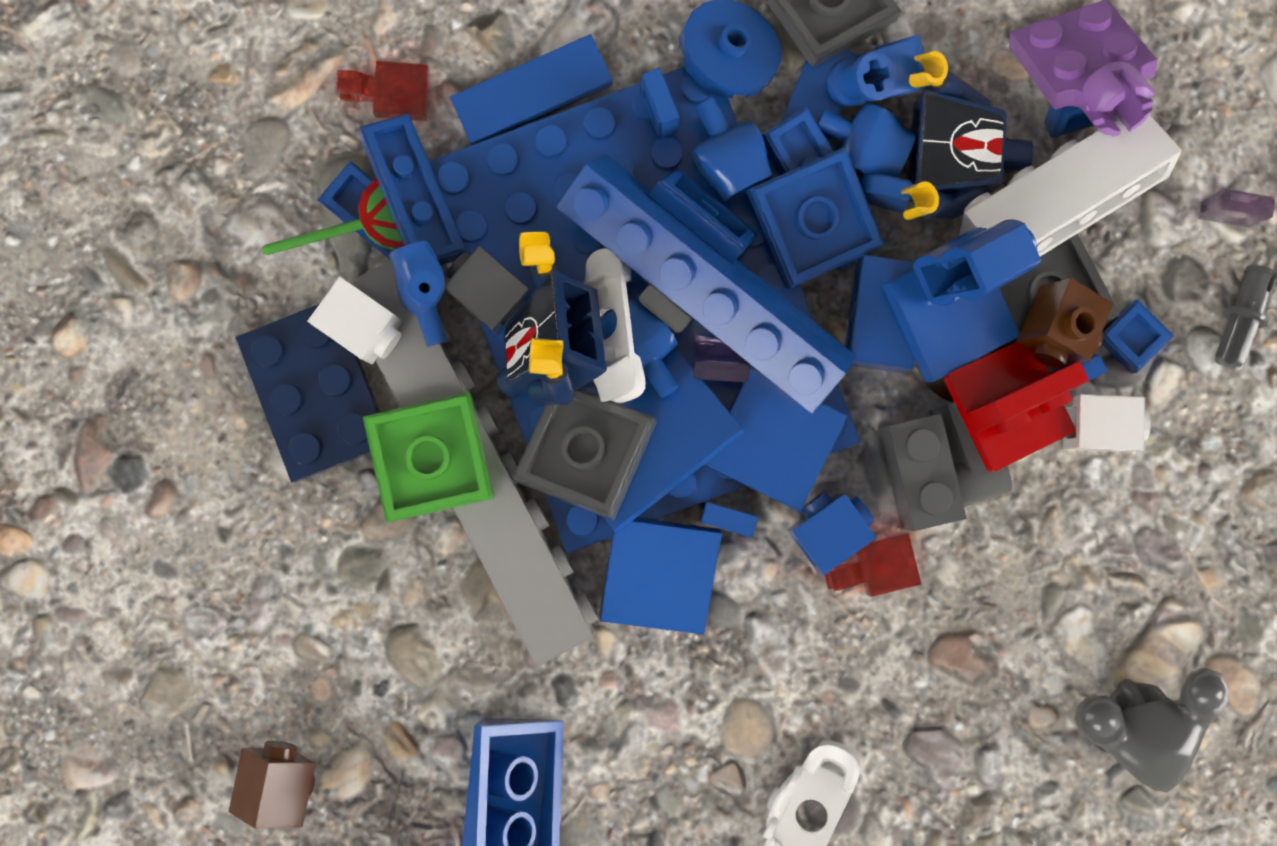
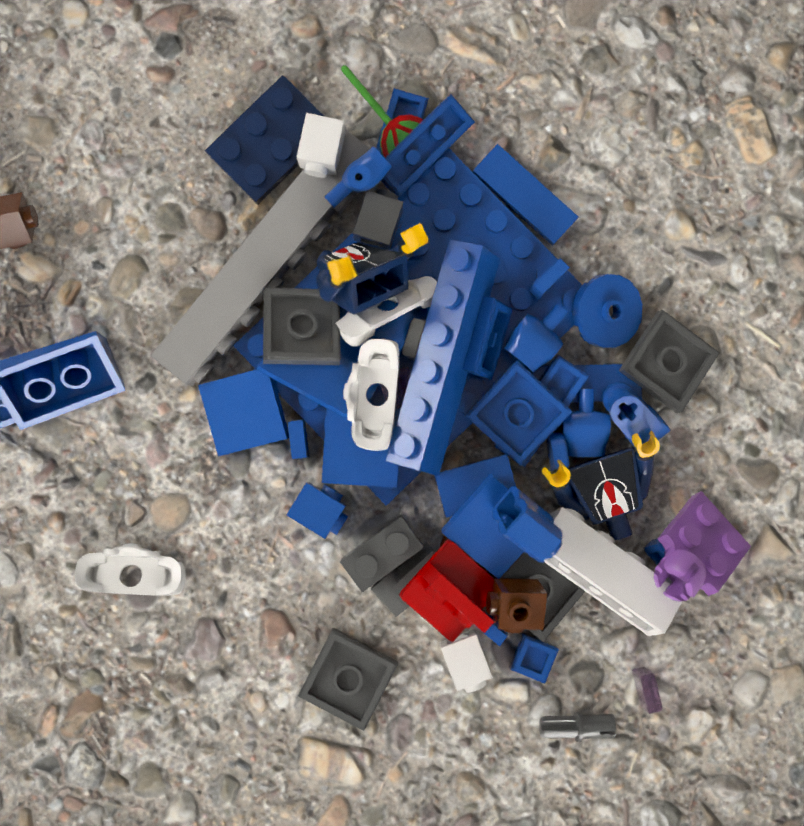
camera: 65 degrees right, 0 degrees up
(393, 89) = (486, 106): clear red plate -> none
(428, 457) = (254, 229): bright green tile -> none
(753, 412) = (376, 364): none -> white piece
(881, 565) = (312, 554): clear red plate -> none
(1063, 586) = (348, 679): none -> dark grey tile
(1150, 731) = (276, 772): dark grey head -> none

